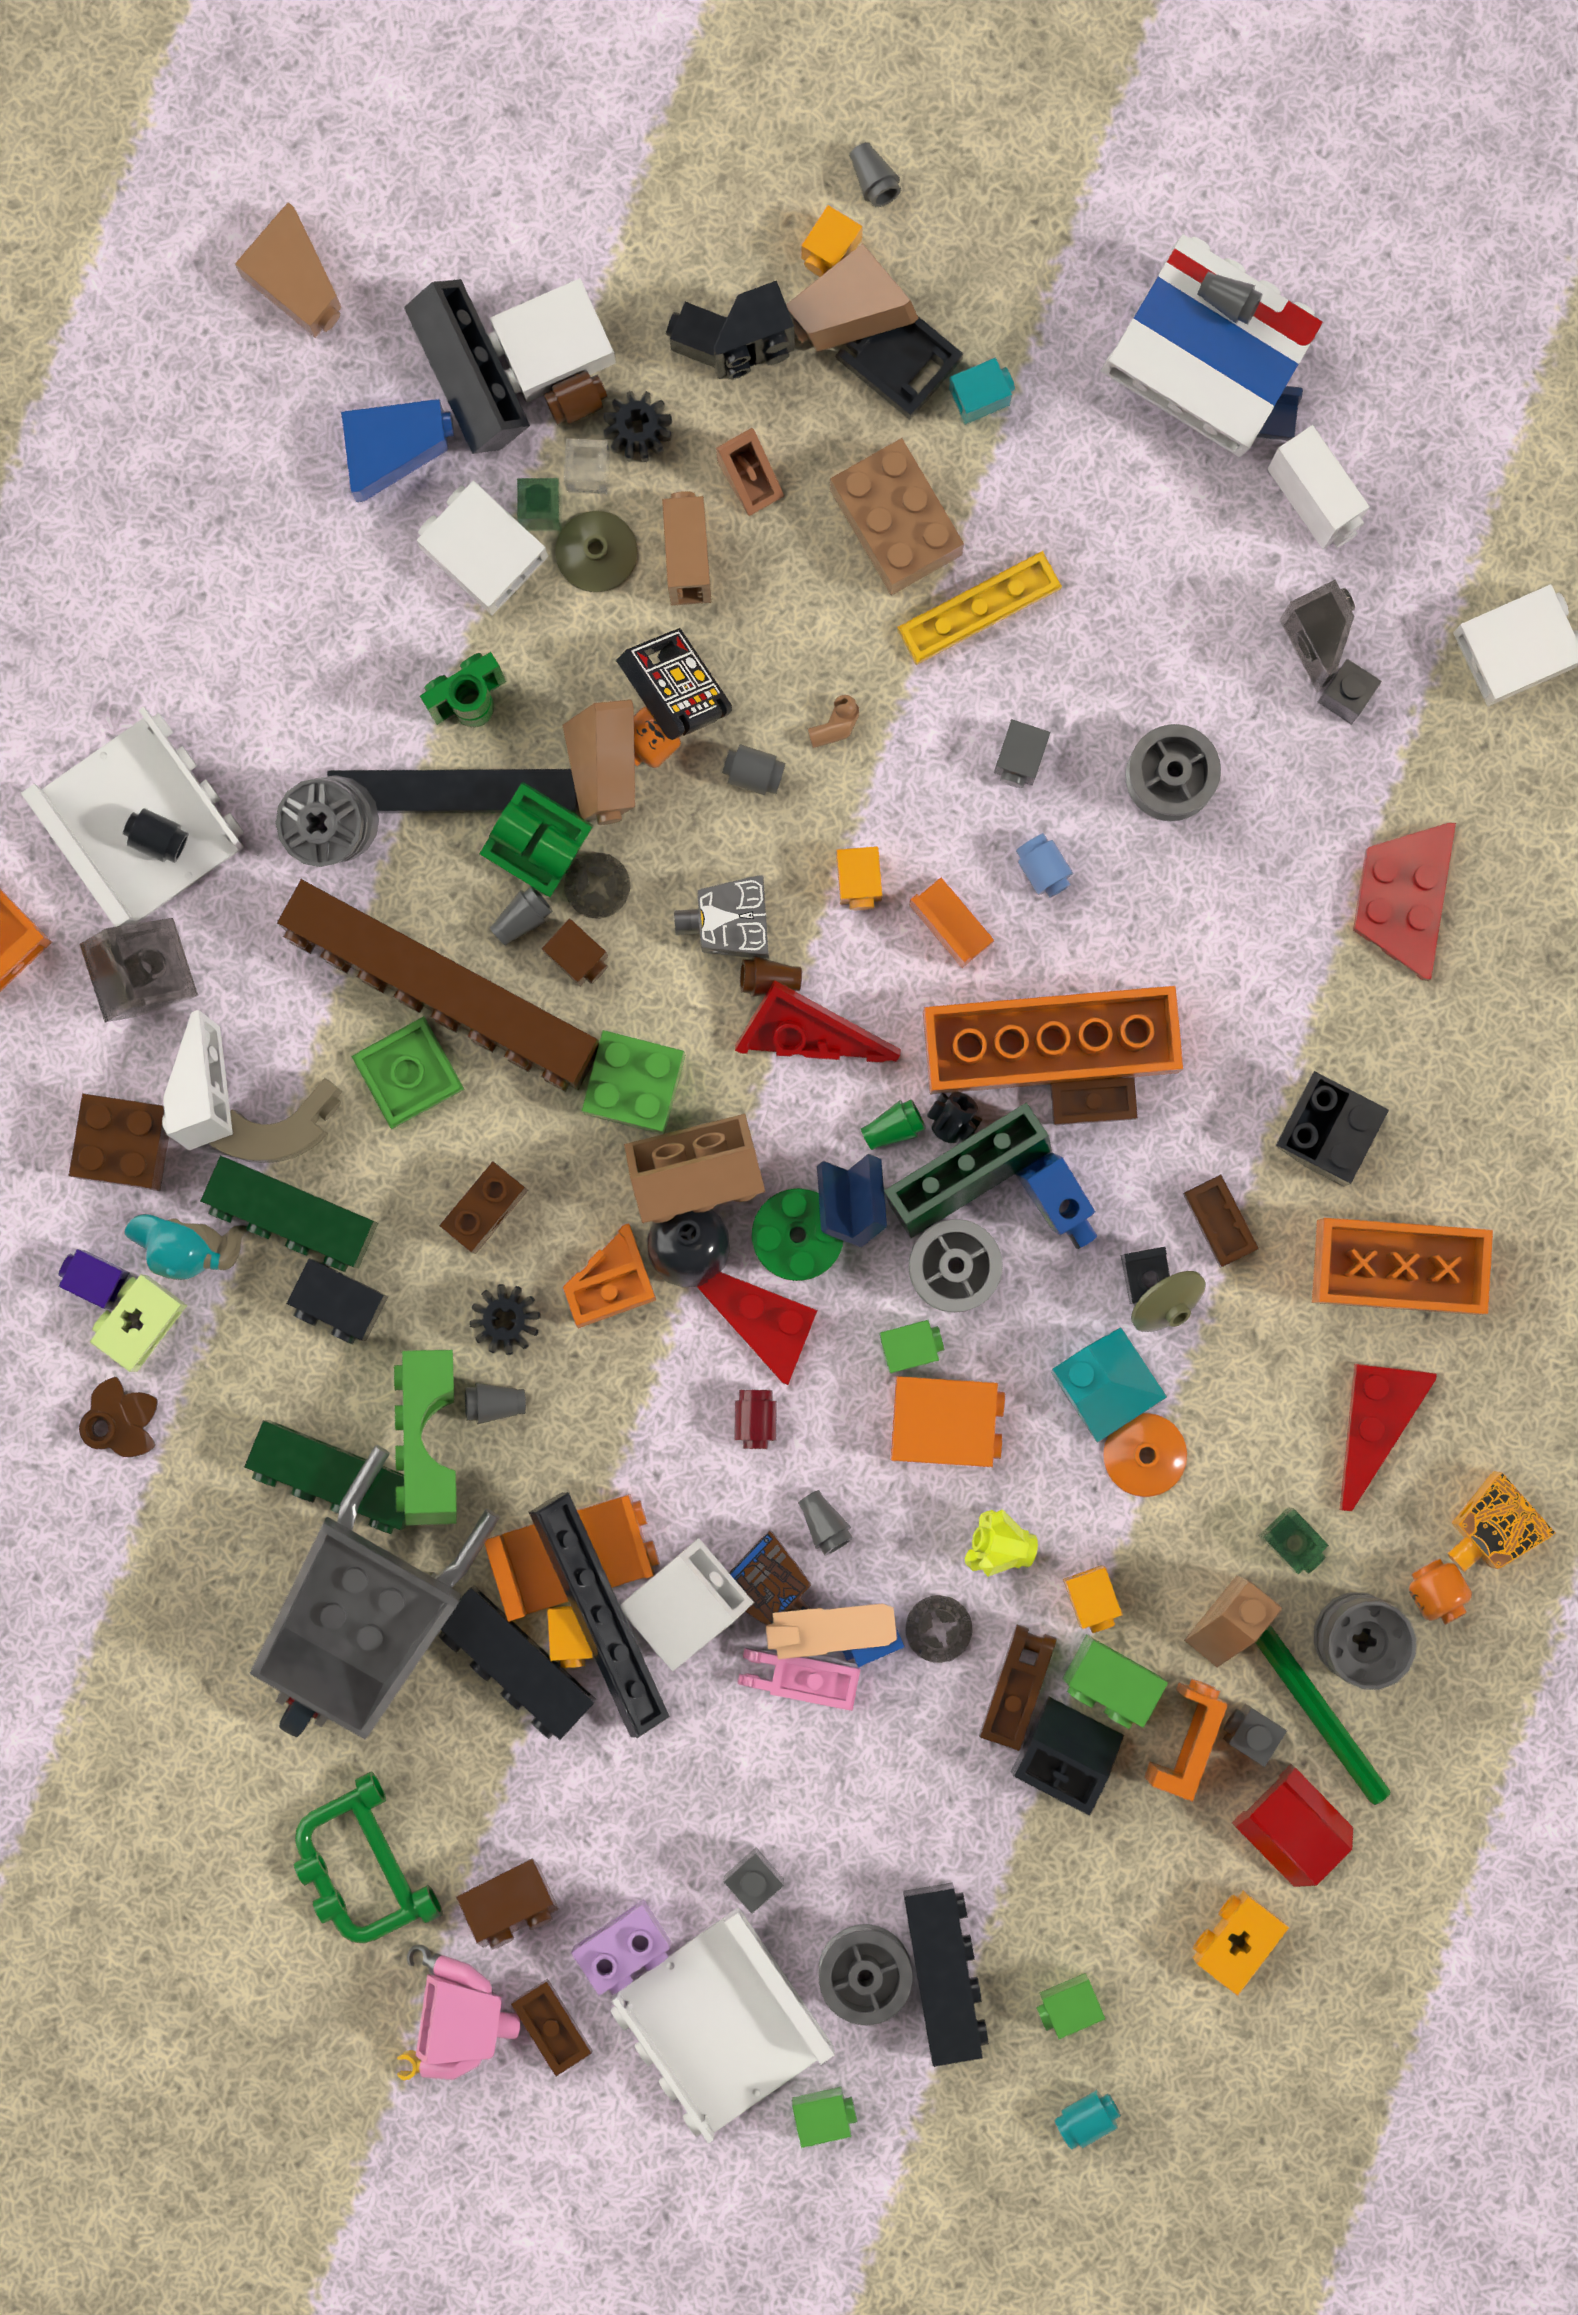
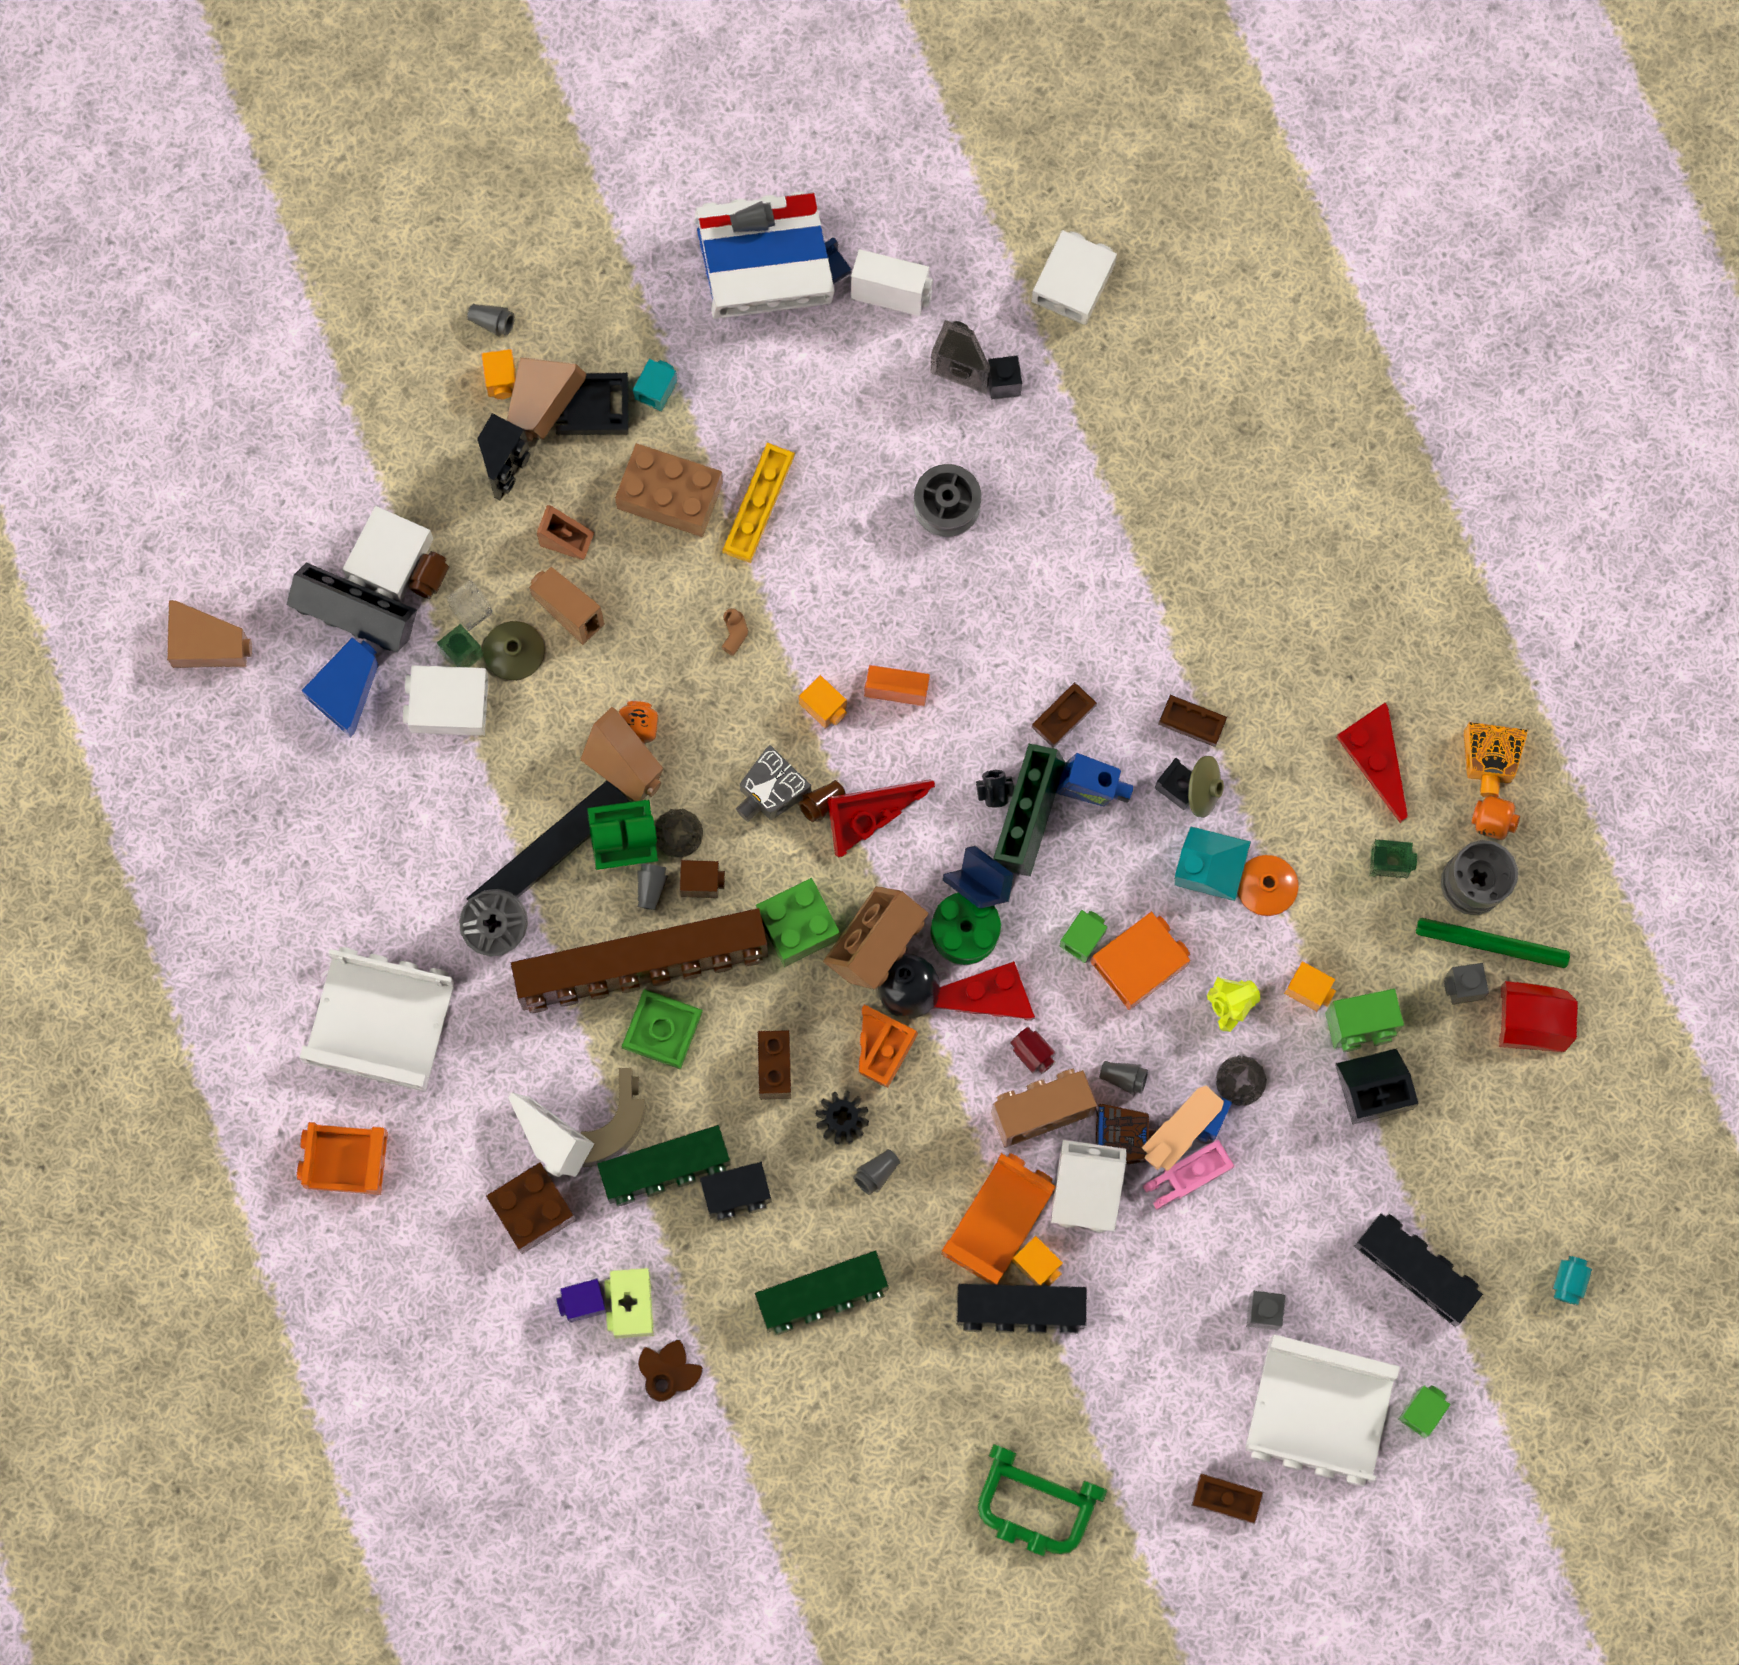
camera: 45 degrees left, 10 degrees down
(138, 969) = (453, 1102): clear smoke slope -> none
(155, 835) = (398, 1017): black brick -> none
(184, 1249) = (618, 1238): teal hair -> none
(356, 1621) = (911, 1356): flat silver piece -> none
(428, 1486) = (884, 1244): bright green arch -> none
(457, 2020) = (1170, 1540): bright pink torso -> none
(477, 676) = (511, 773): green plate -> none
(508, 1904) = (1140, 1447): reddish brown brick -> none
(599, 1614) = (1045, 1234): black tile -> none
(622, 430) = (476, 550): black gear -> none
(622, 1948) = (1226, 1416): lavender brick -> none
(677, 688) = (626, 682): black container -> none
(695, 332) = (468, 483): black brick -> none
(709, 1486) = (1043, 1107): none -> medium nougat brick
(753, 770) = (711, 694): dark grey brick -> none
(861, 1949) = (1357, 1312): flat silver wheel -> none
(894, 1125) = (965, 822): green cone -> none
(973, 1248) = (1062, 885): light grey wheel -> none
(1017, 1689) = (1314, 1074): reddish brown plate -> none
(1021, 754) = (854, 560): dark grey brick -> none
(1044, 866) = (921, 610): medium blue brick -> none
(1052, 1040) = (1011, 699): orange brick -> none
(1070, 2006) = (1504, 1225): bright green brick -> none
(1197, 1743) = (1440, 1013): orange panel -> none
(1233, 1622) = (1399, 929): medium nougat slope -> none
(1237, 1965) = (1571, 1090): light orange brick -> none
(1331, 1129) = (1209, 618): black slope -> none
(1402, 1266) = (1313, 658): orange brick -> none
(1405, 896) = (1133, 462): wing -> none

